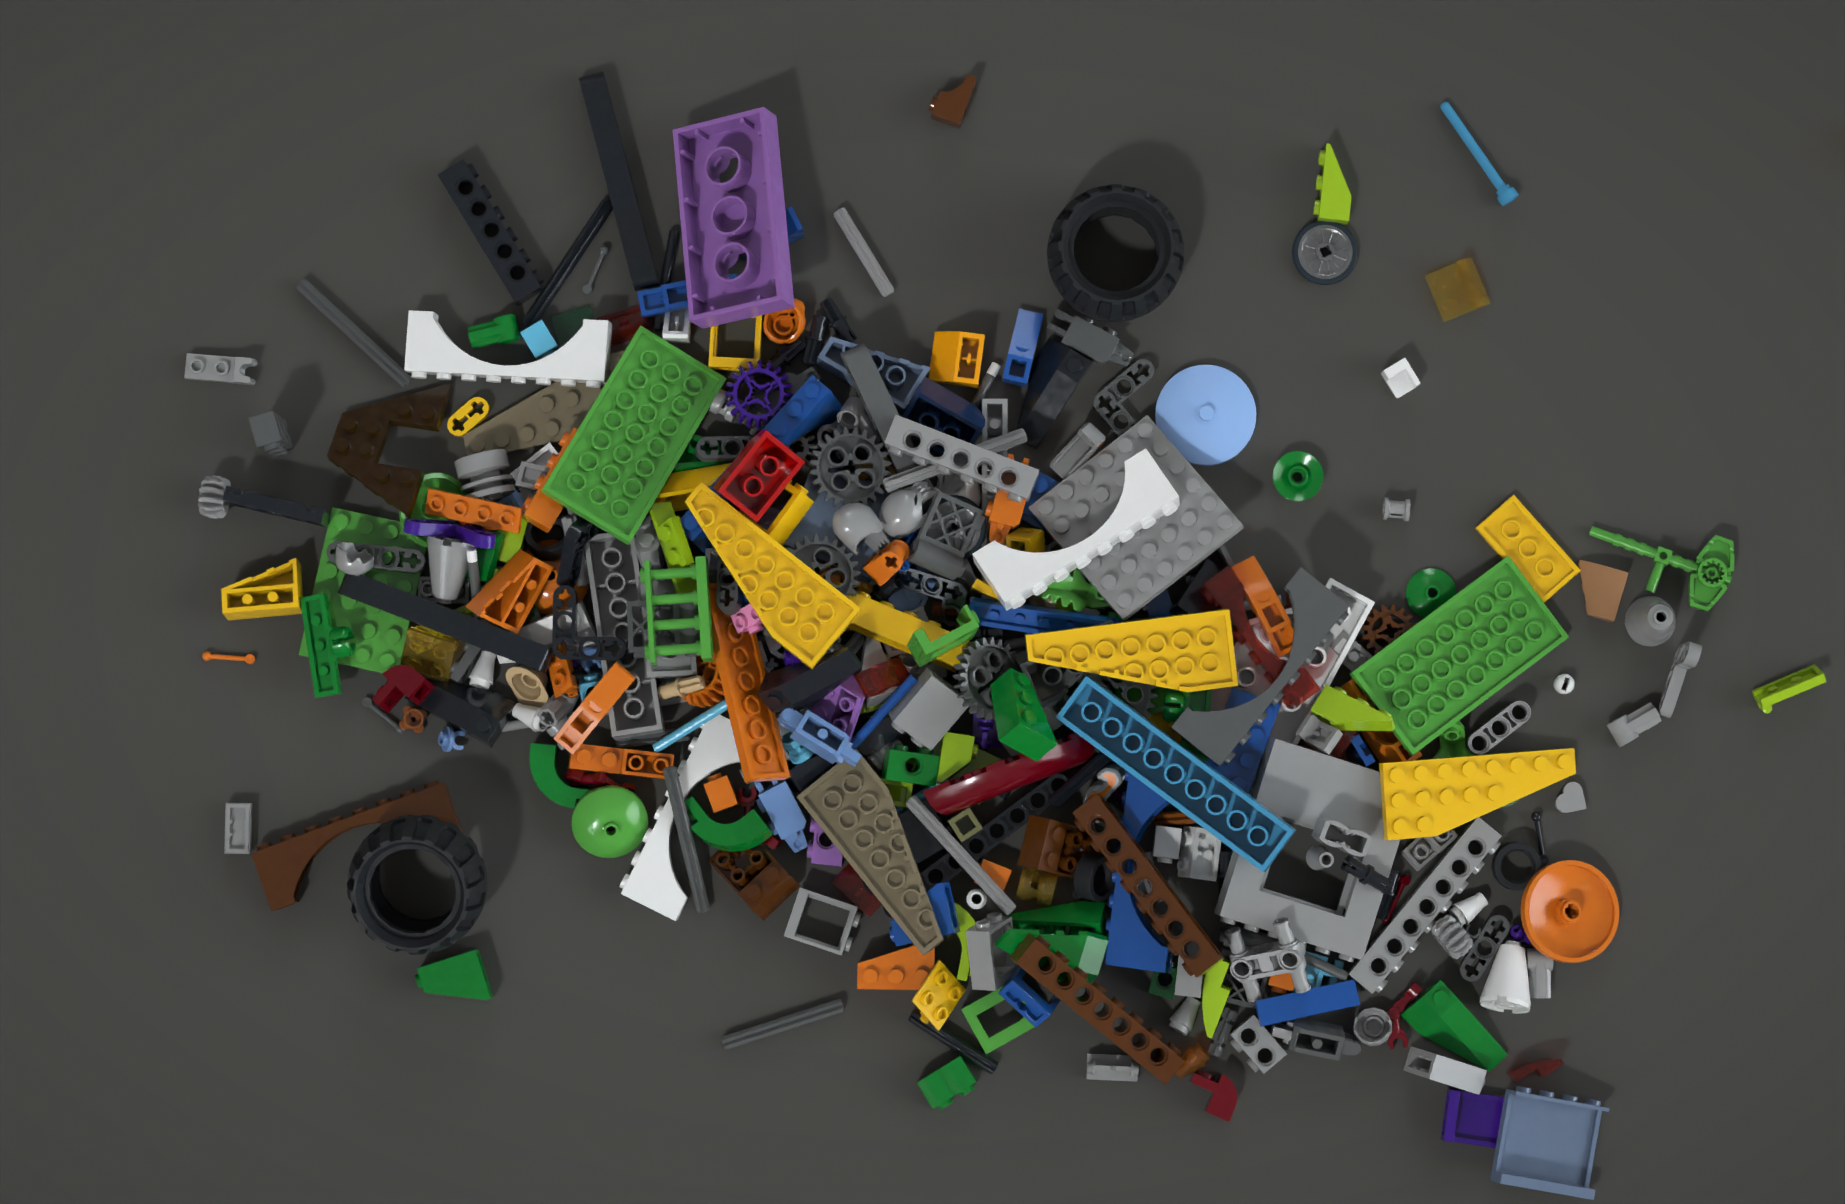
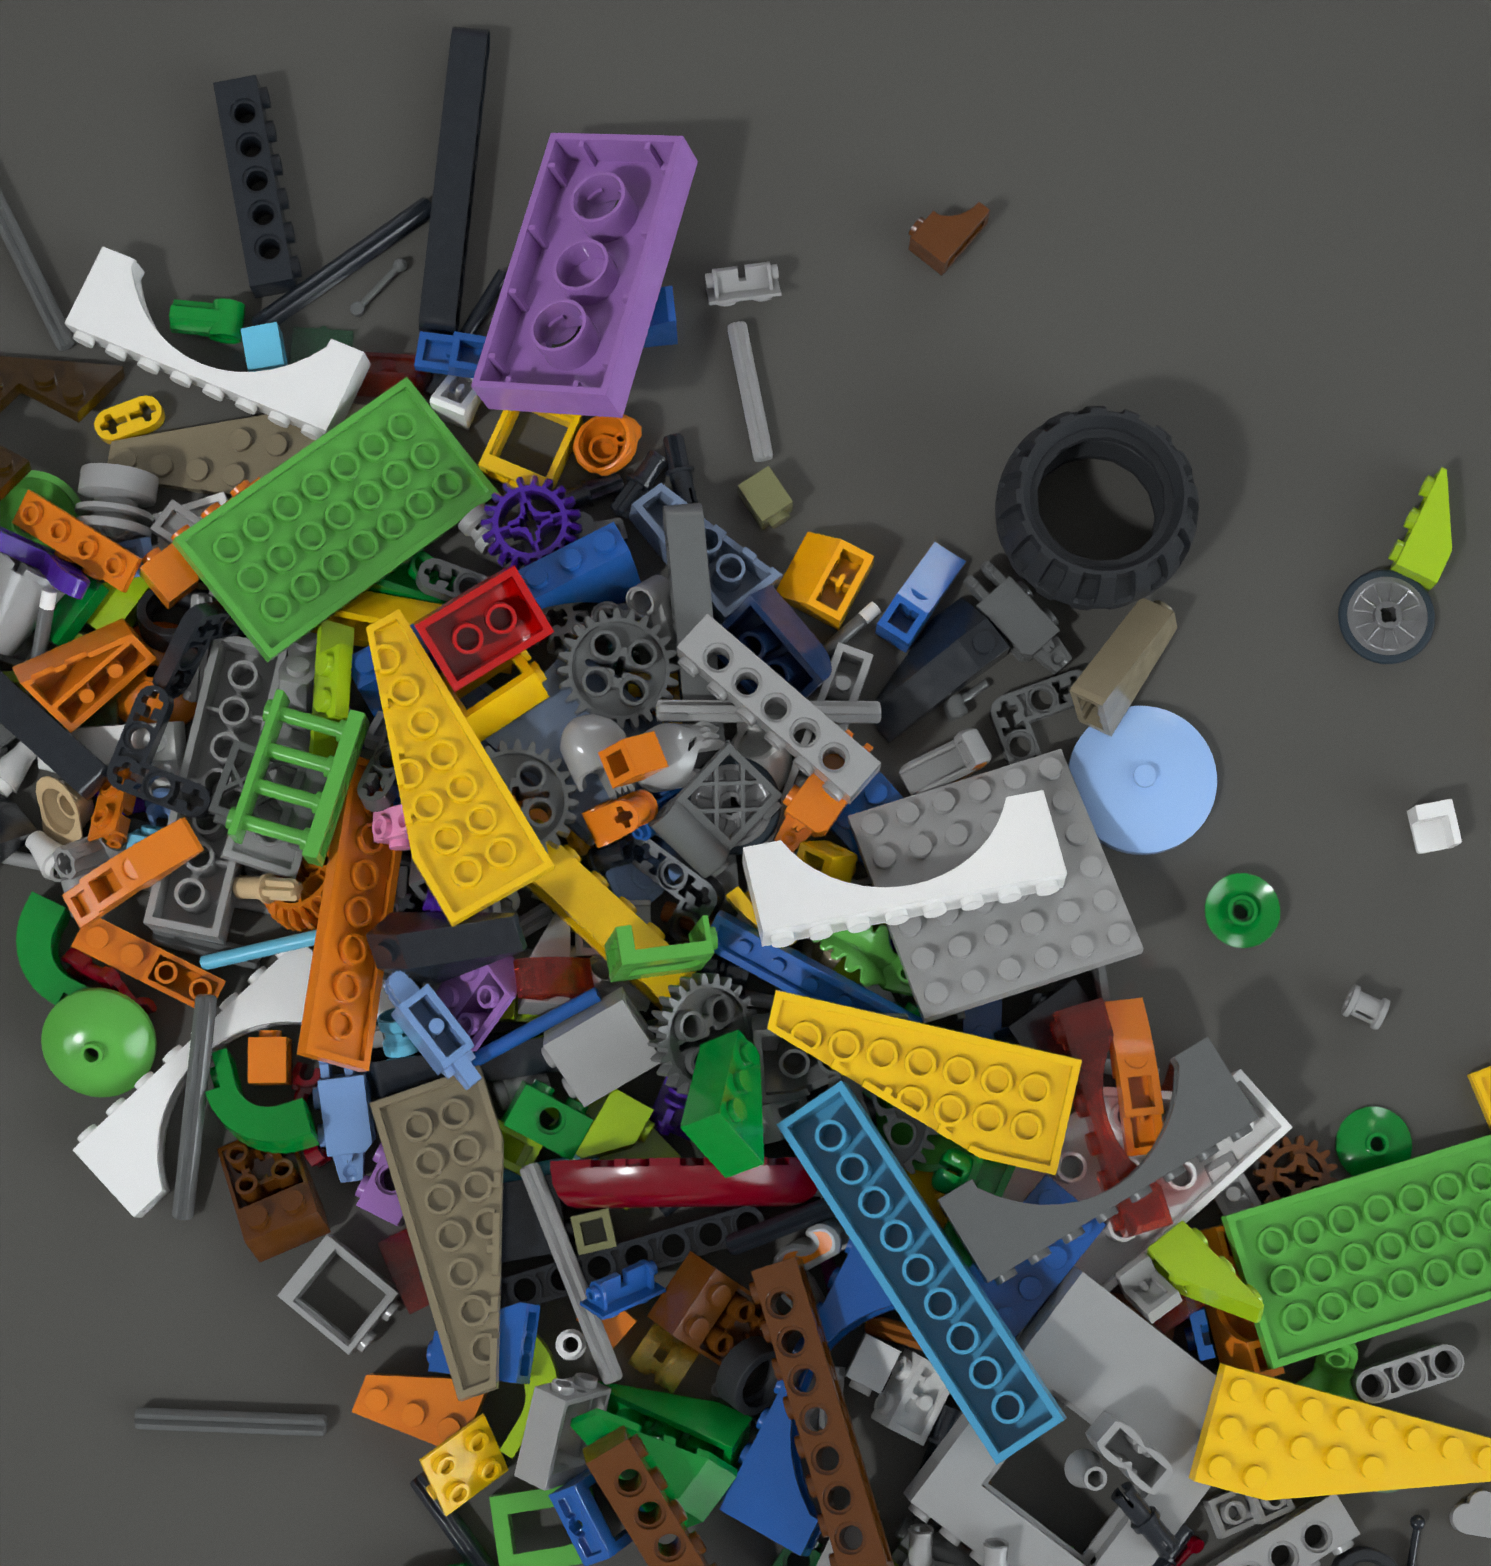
camera: 15 degrees right, 5 degrees down
(843, 179) = (759, 284): none -> light grey hinge
(884, 524) = (633, 759): none -> orange brick
(900, 320) = (766, 499): none -> olive brick
(990, 859) = (610, 1297): none -> blue hinge
(1070, 410) = (955, 706): none -> dark grey hand
(1168, 346) = (1123, 665): none -> dark tan slope

